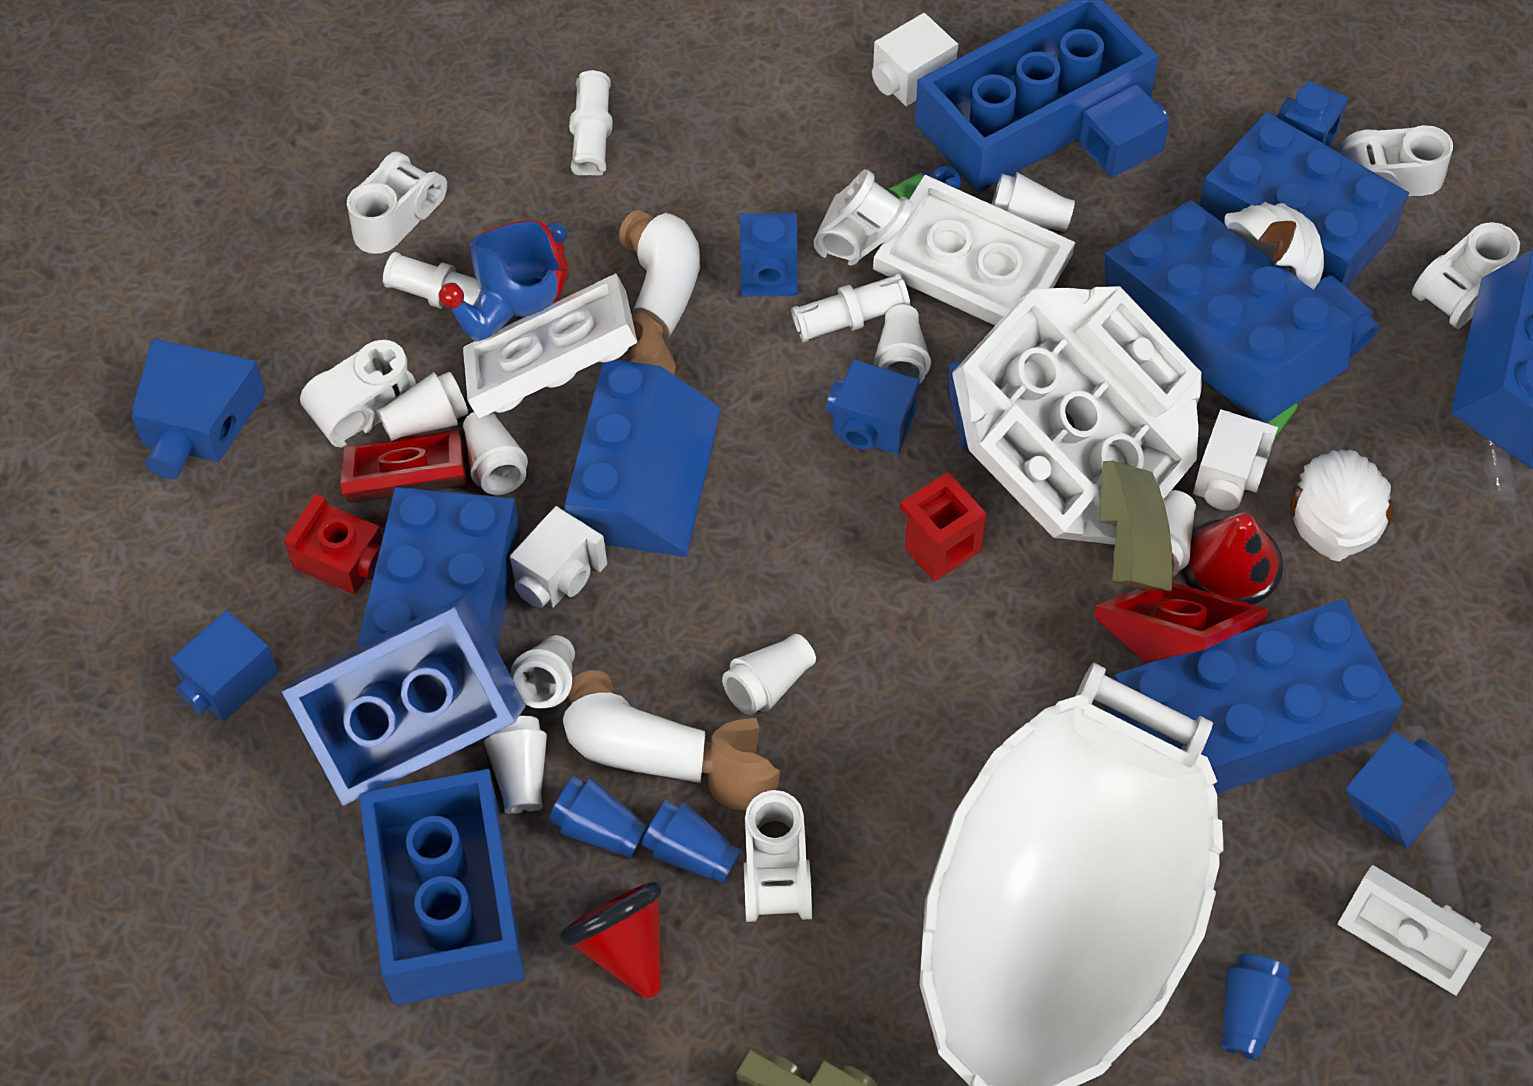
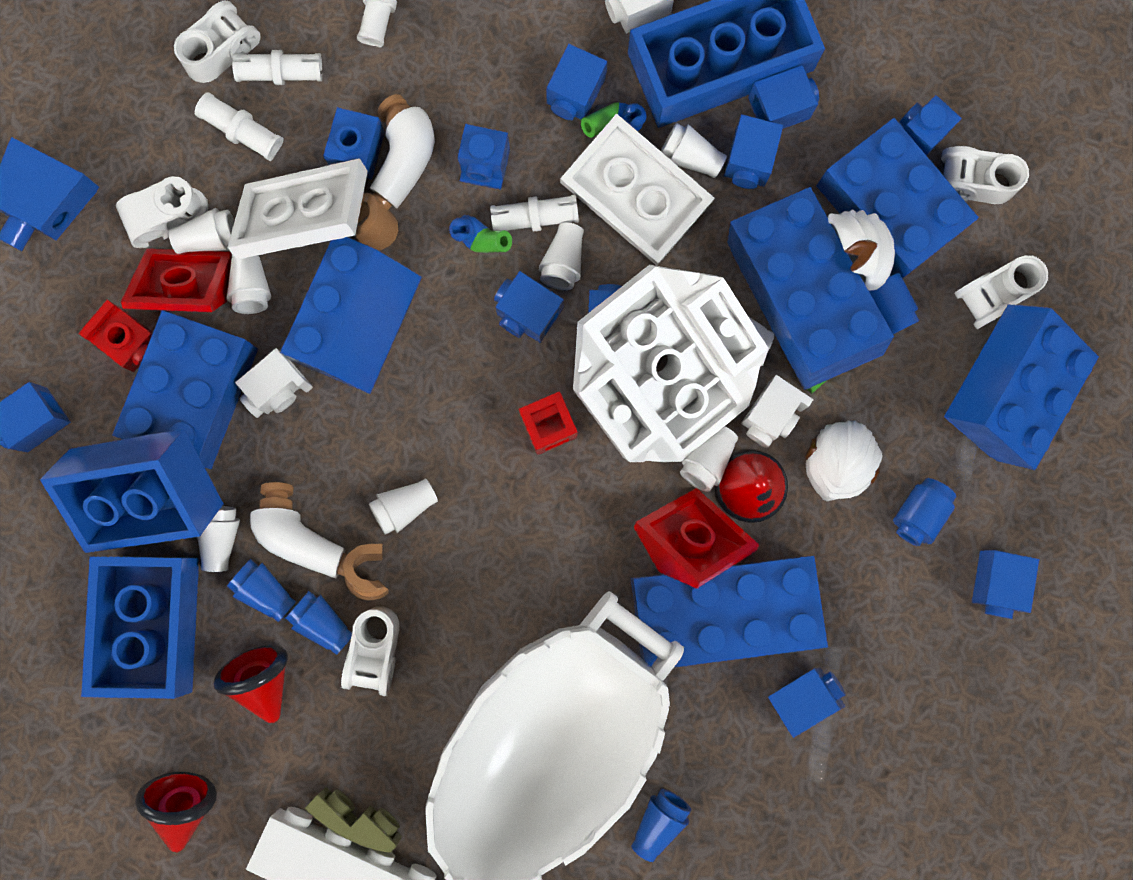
camera: 10 degrees right, 25 degrees up
(476, 213) = (277, 67): none -> white pin
(518, 274) = (287, 138): blue piece -> none
(545, 672) = (244, 477): white cone -> none
(595, 257) = (354, 137): none -> blue brick
(785, 347) = (478, 236): none -> arm
(860, 146) = (575, 83): none -> blue brick
(860, 219) = (559, 144): white piece -> none
(1105, 189) = (753, 152): none -> blue brick
(1143, 539) = (687, 456): olive slope -> none
(1414, 930) = (794, 808): white hinge -> none
(1471, 539) = (925, 512): none -> blue brick

